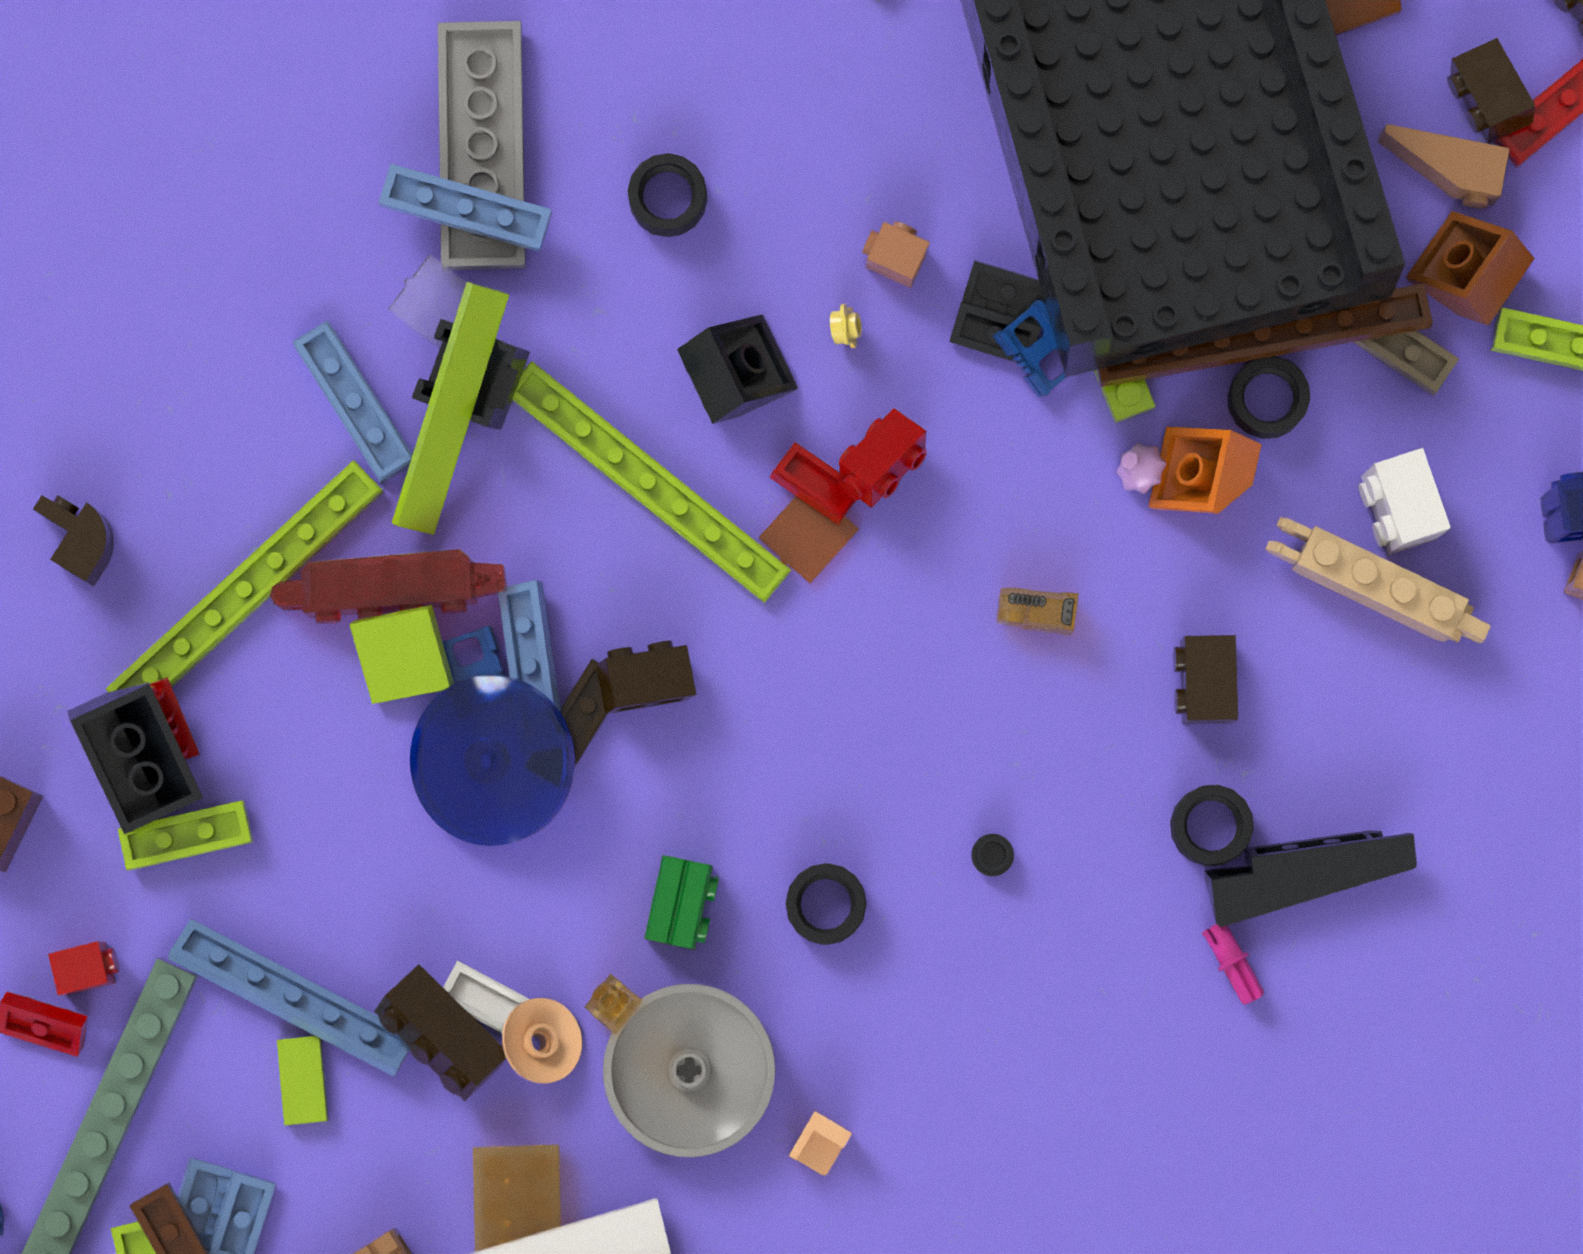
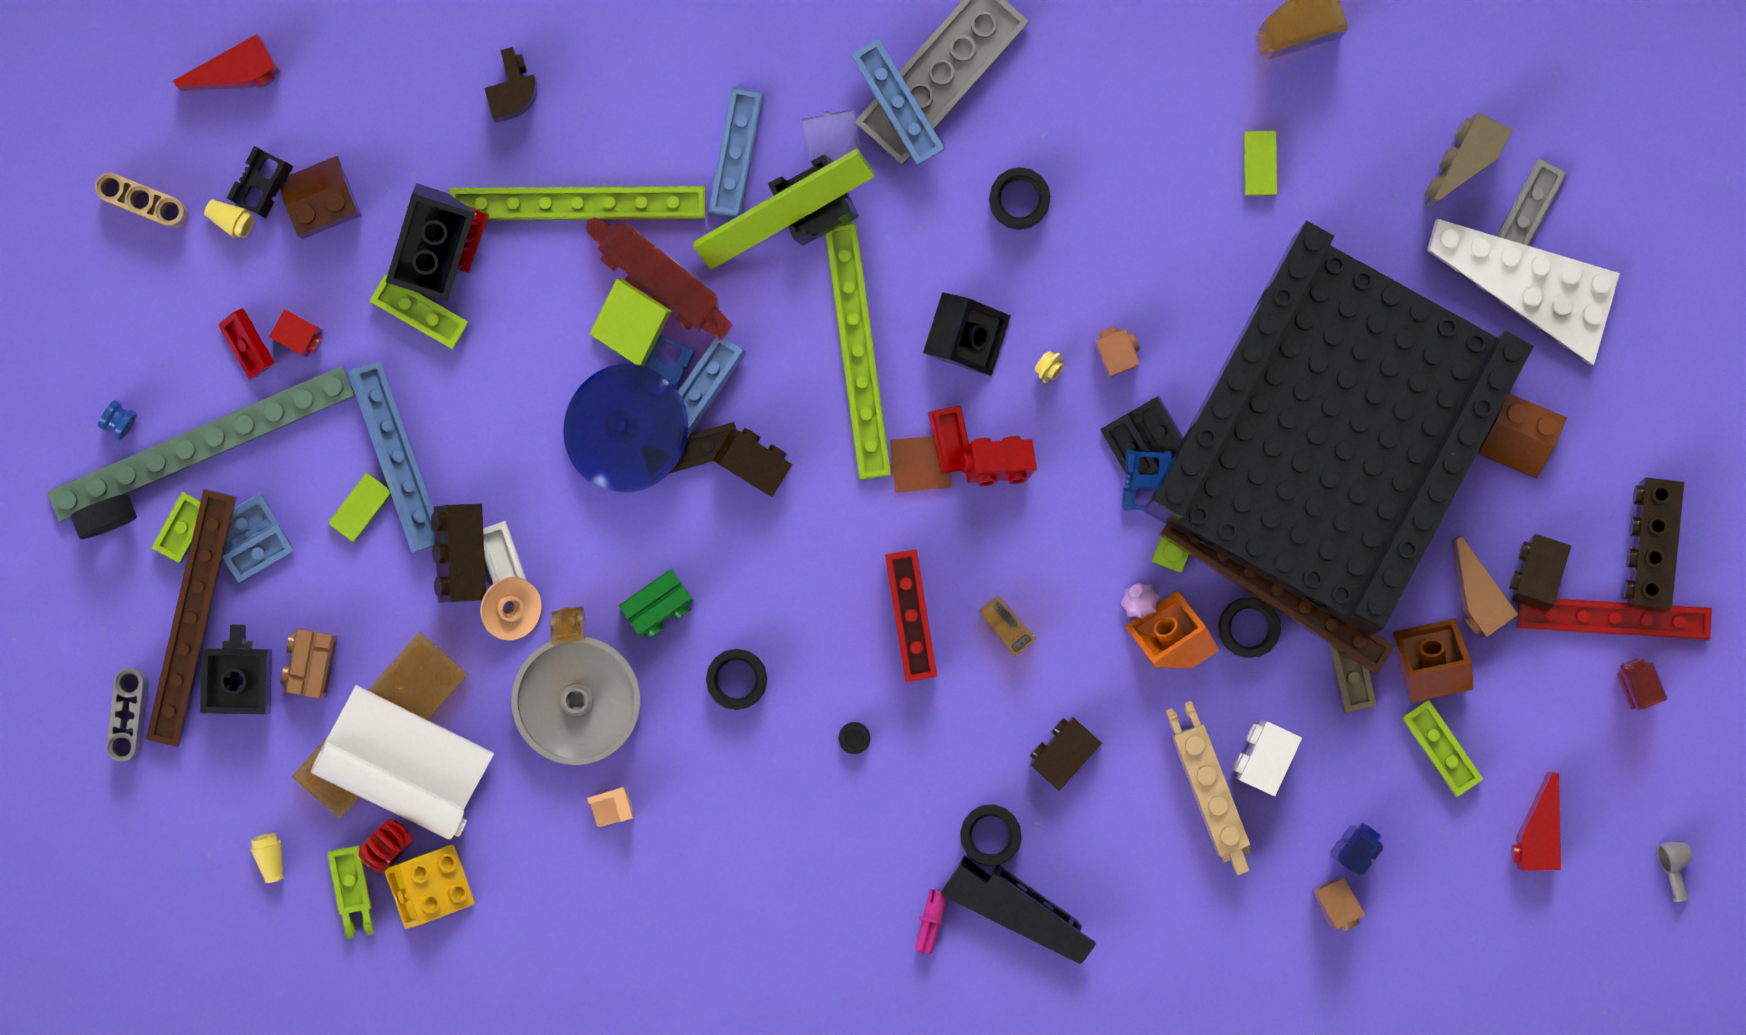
camera: 40 degrees right, 5 degrees up
(936, 684) = (911, 615): none -> red brick

